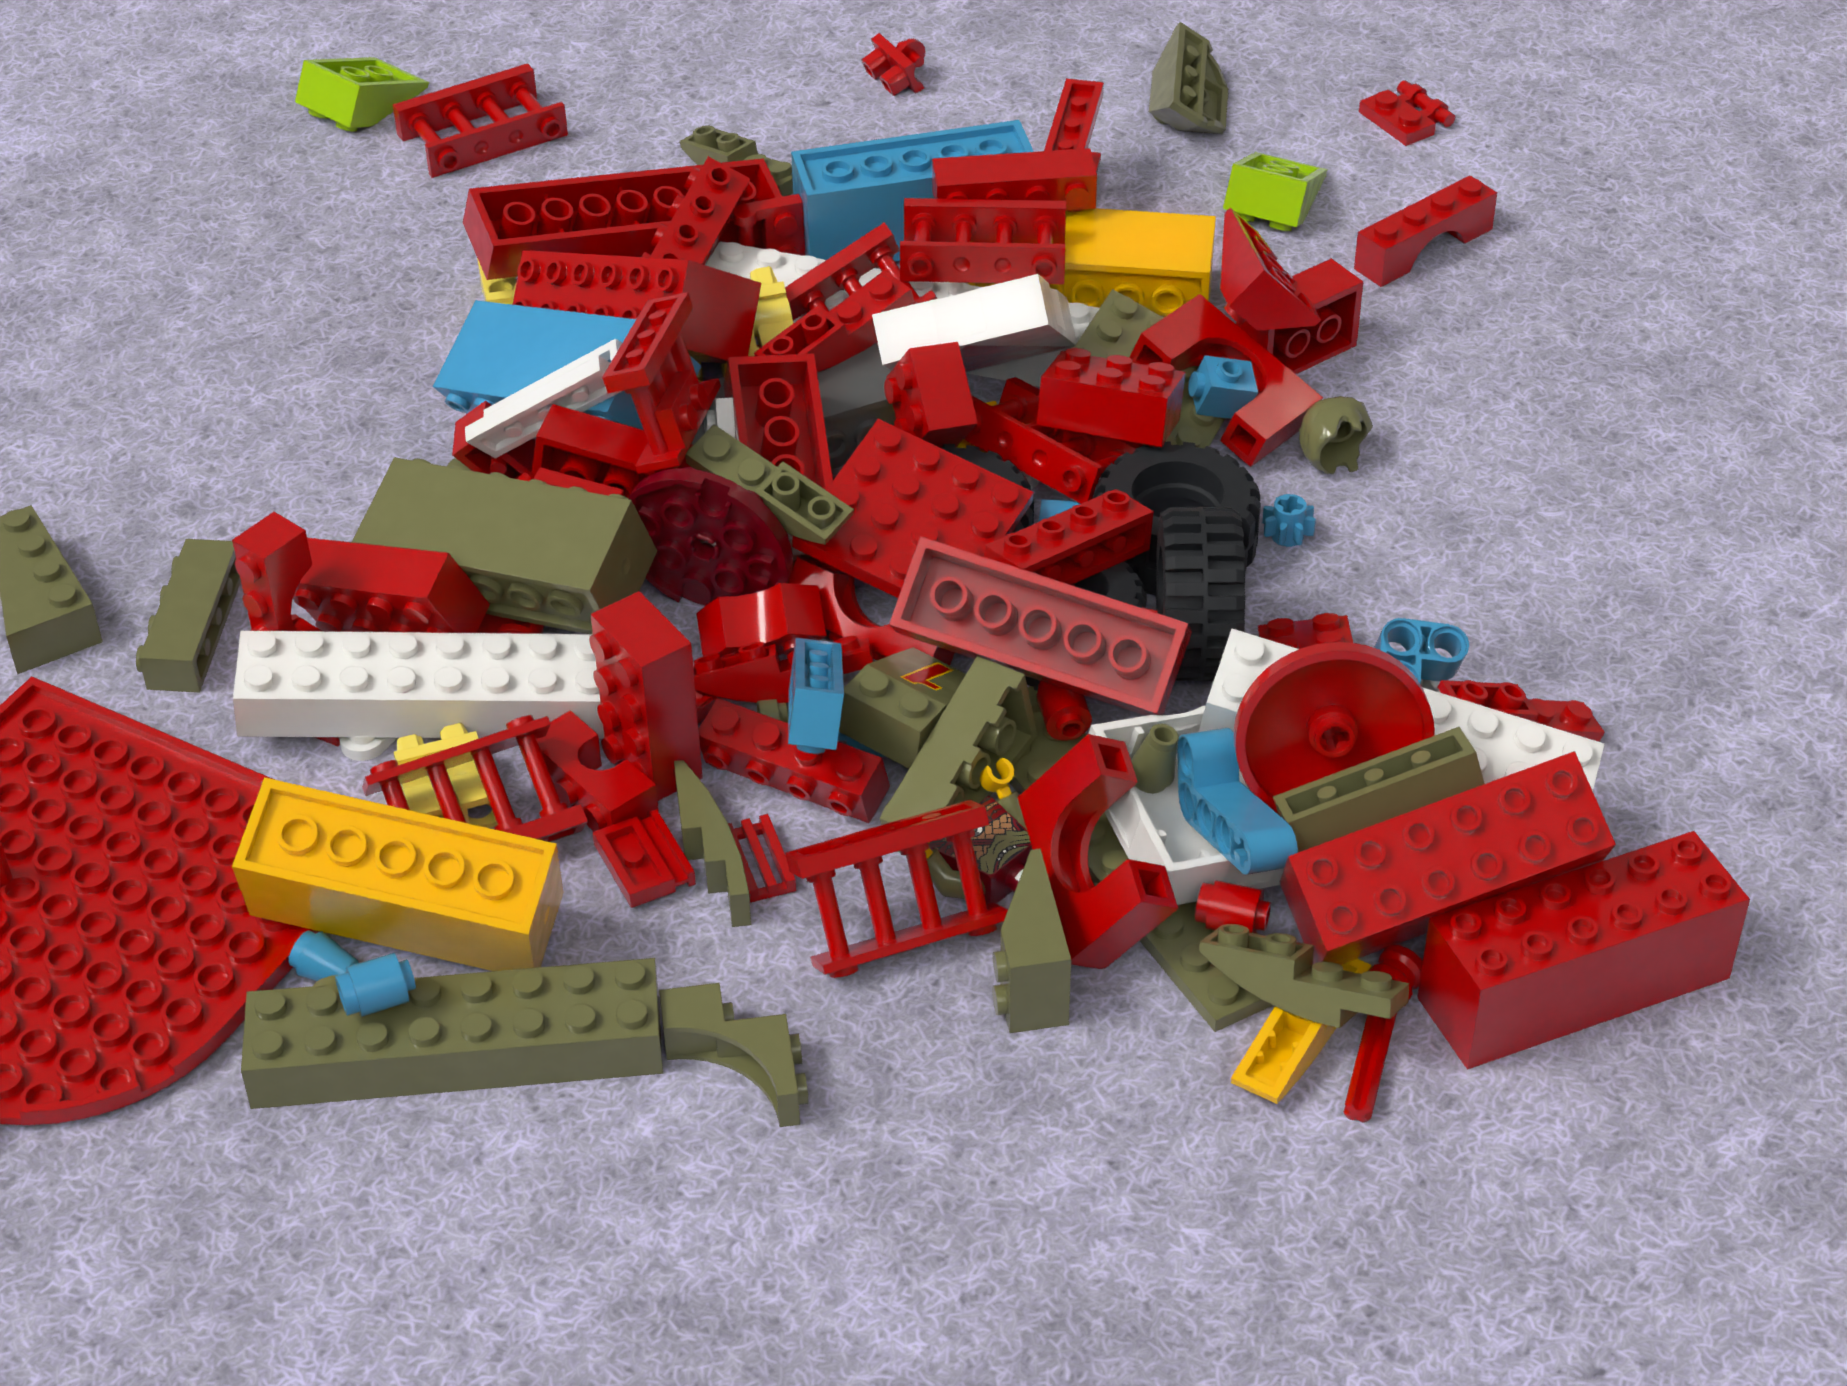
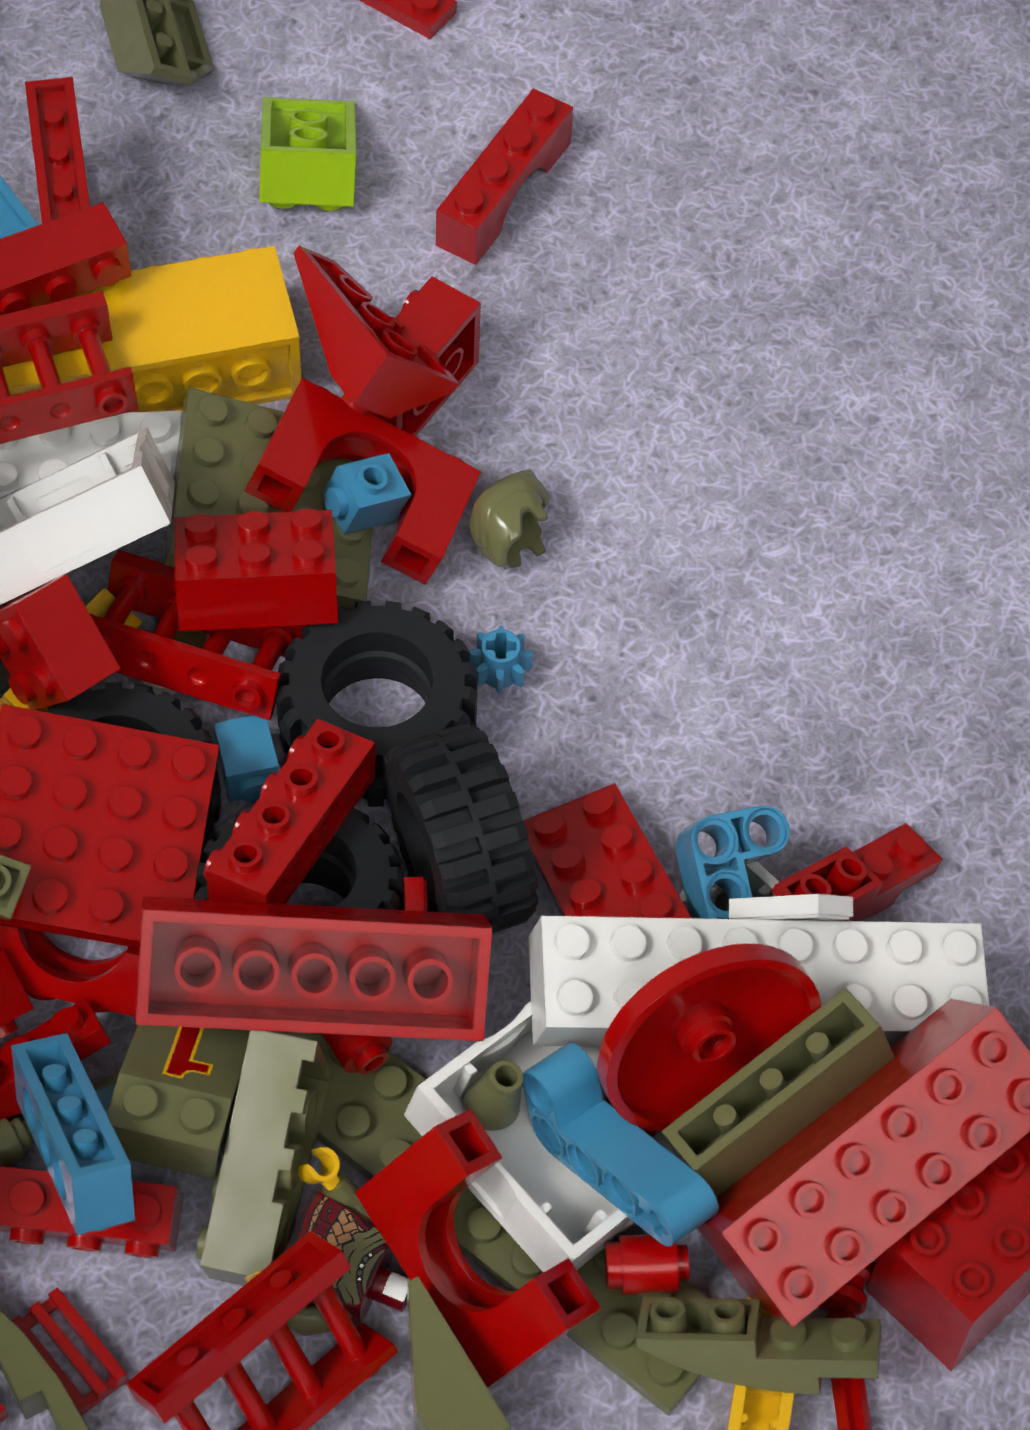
camera: 25 degrees left, 15 degrees up
(1457, 682) = (792, 907): none -> white tile

